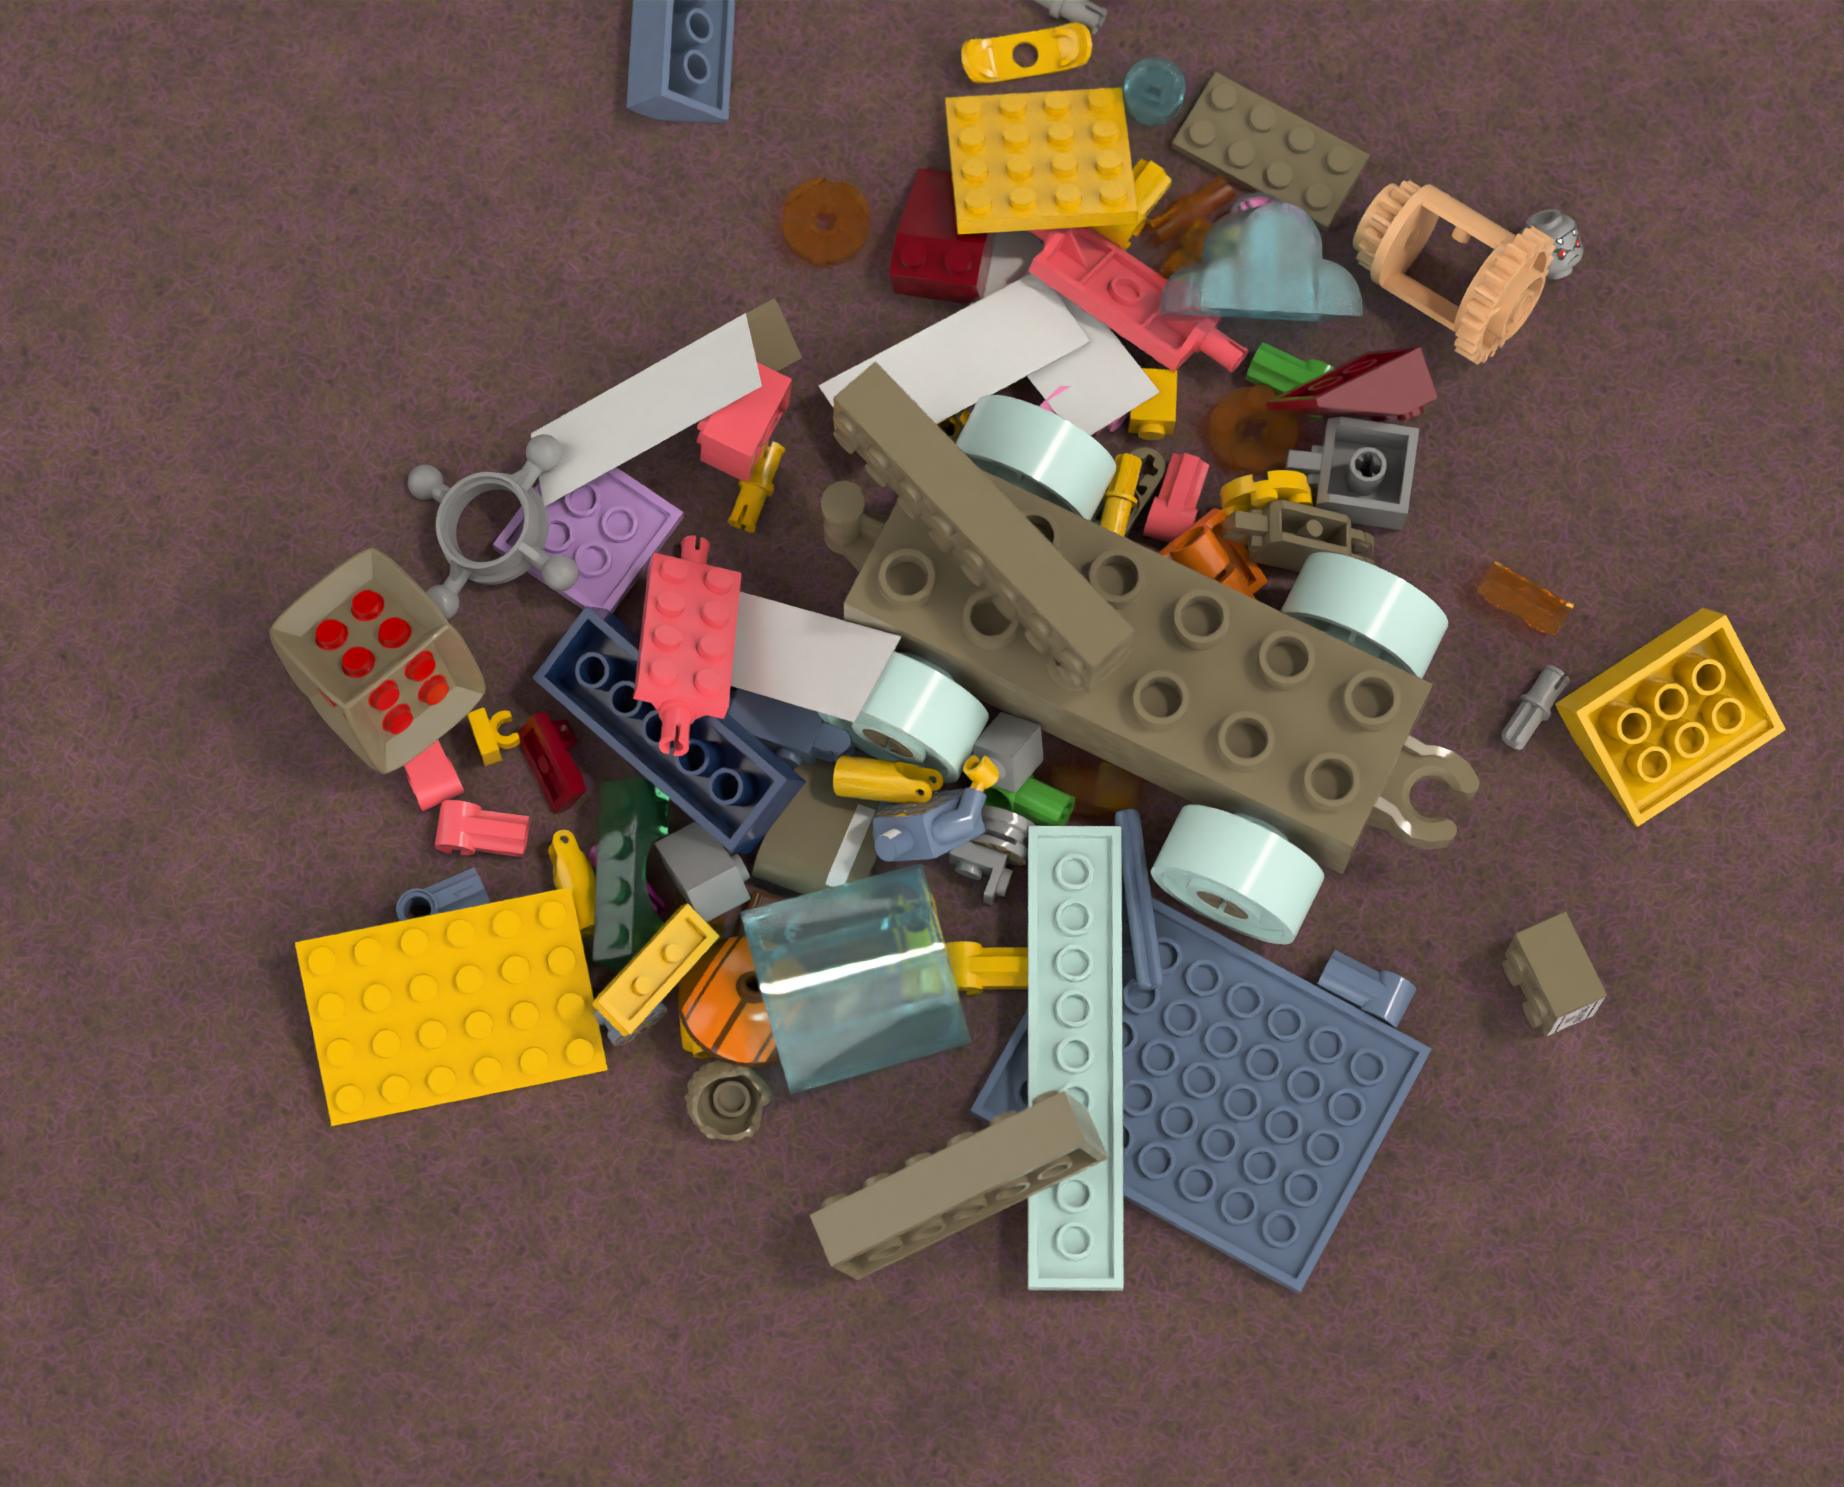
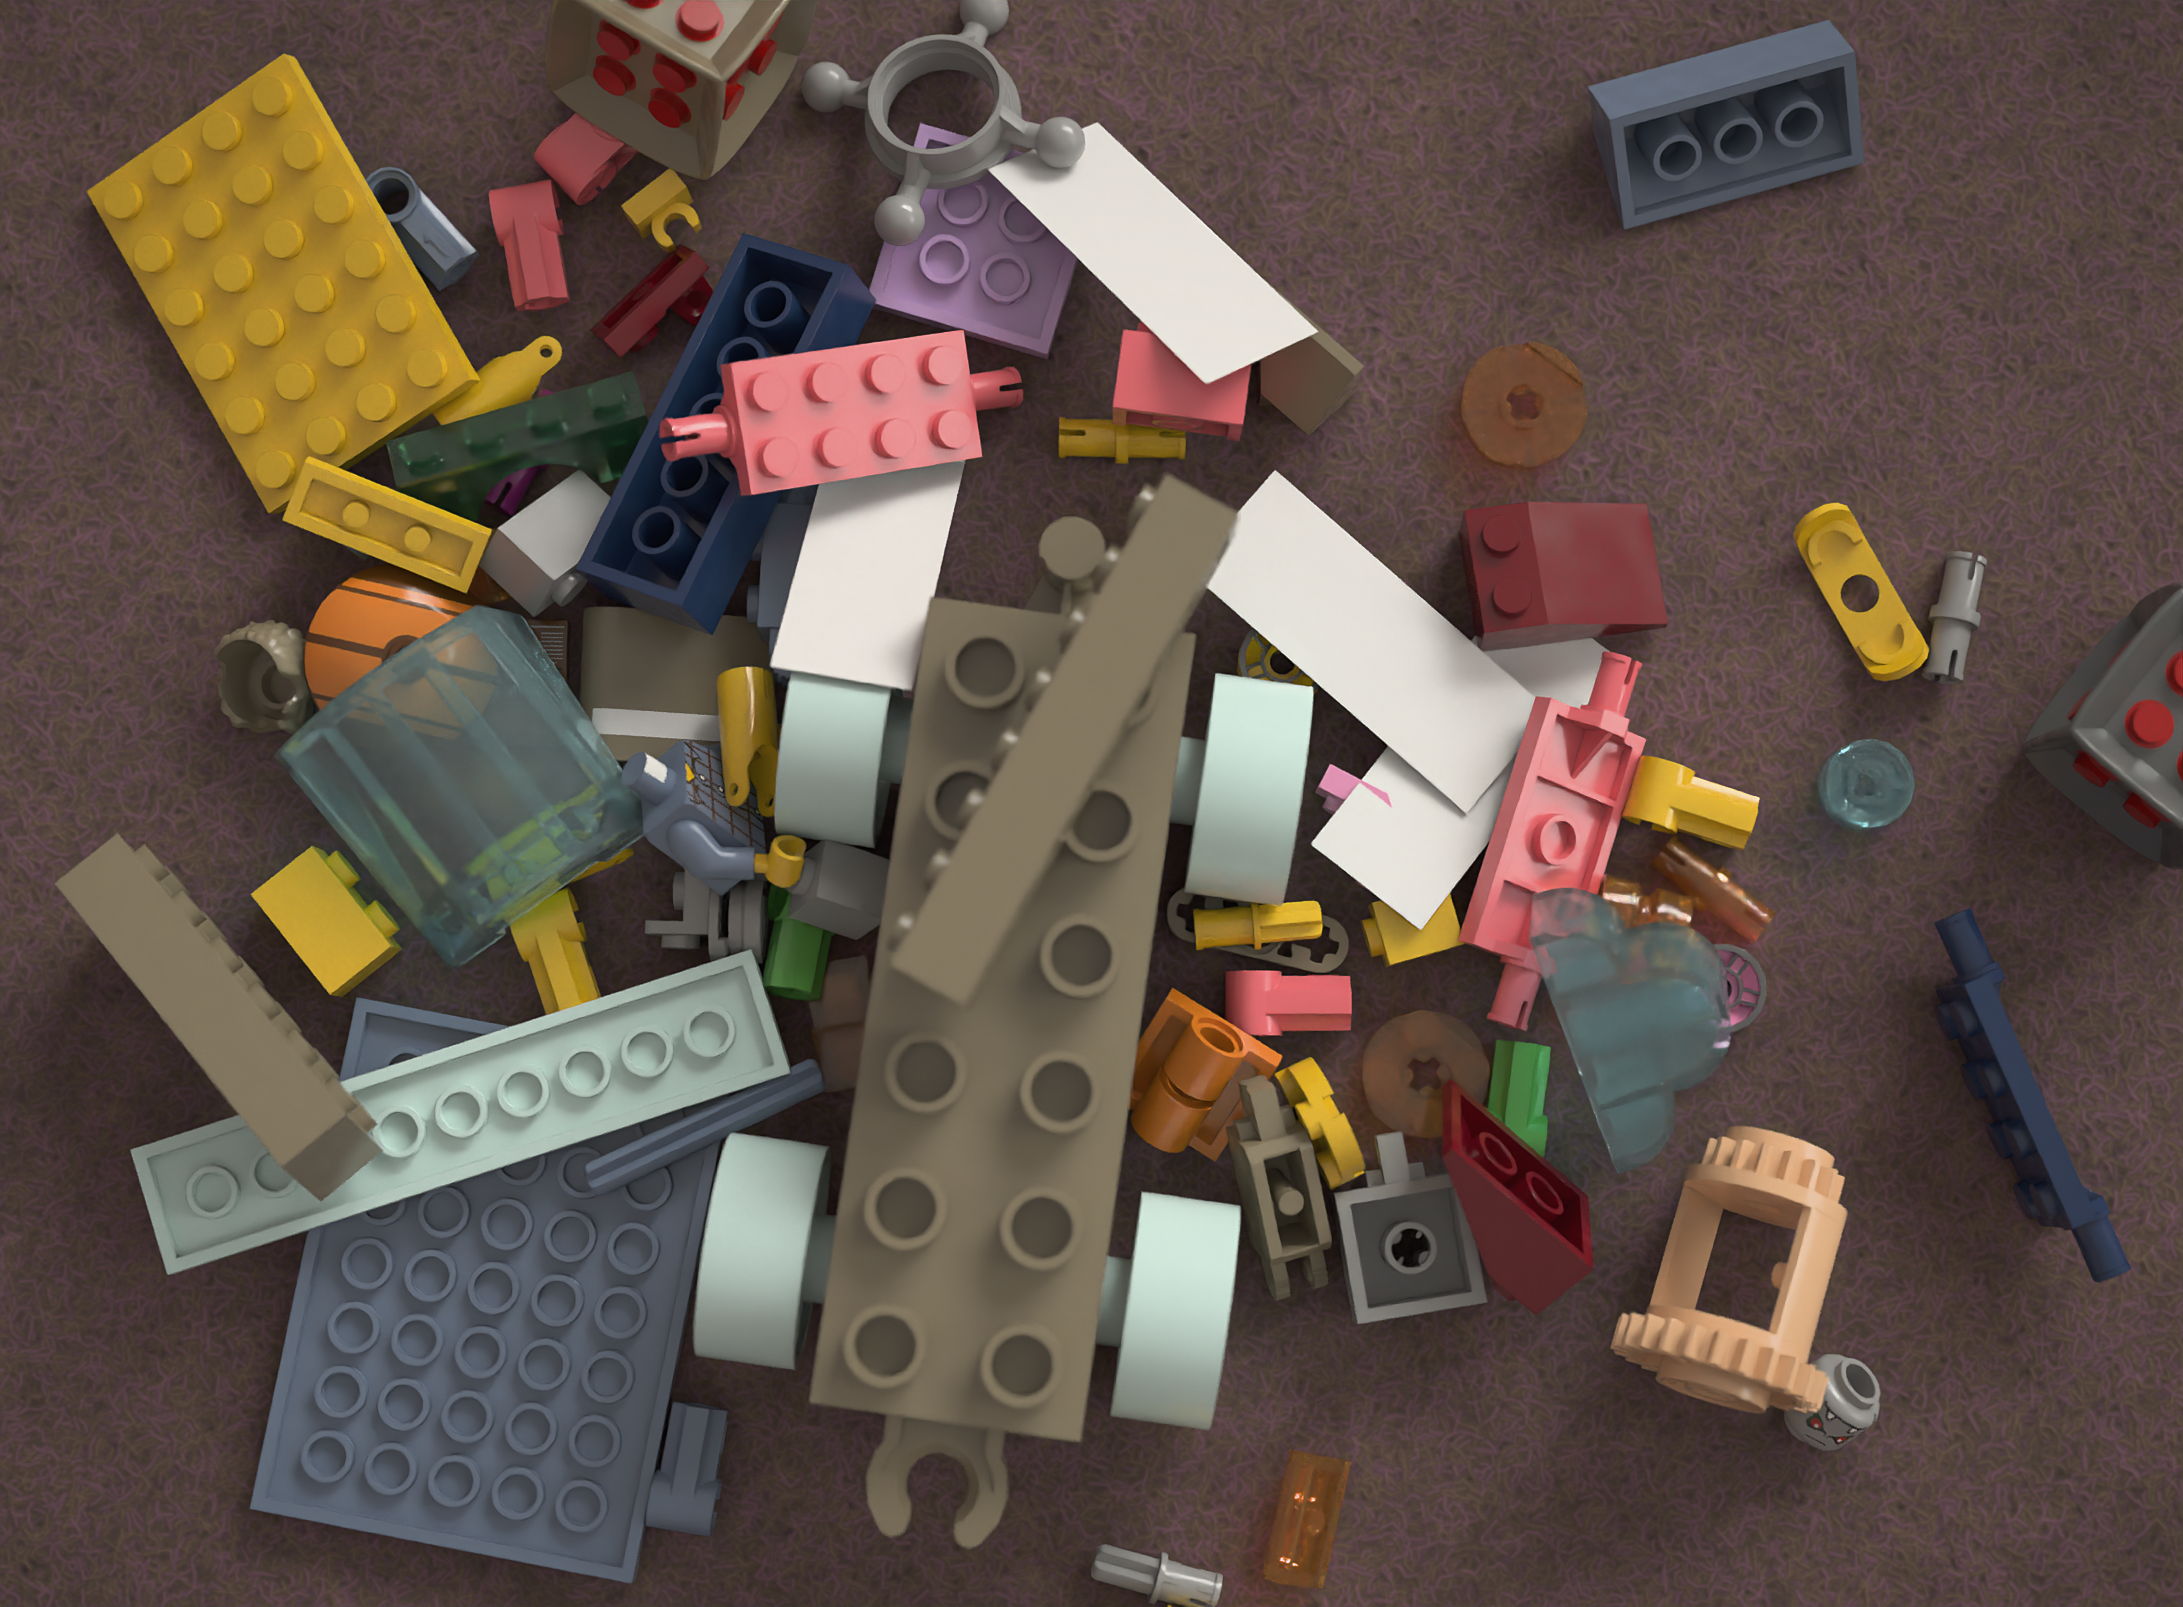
camera: 75 degrees right, 10 degrees up
(909, 1113) = (328, 919): none -> yellow brick
(1040, 161) = (1701, 662): yellow plate -> none
(1270, 150) = (1837, 971): dark tan plate -> none
(1391, 65) = (2021, 1118): none -> dark blue plate

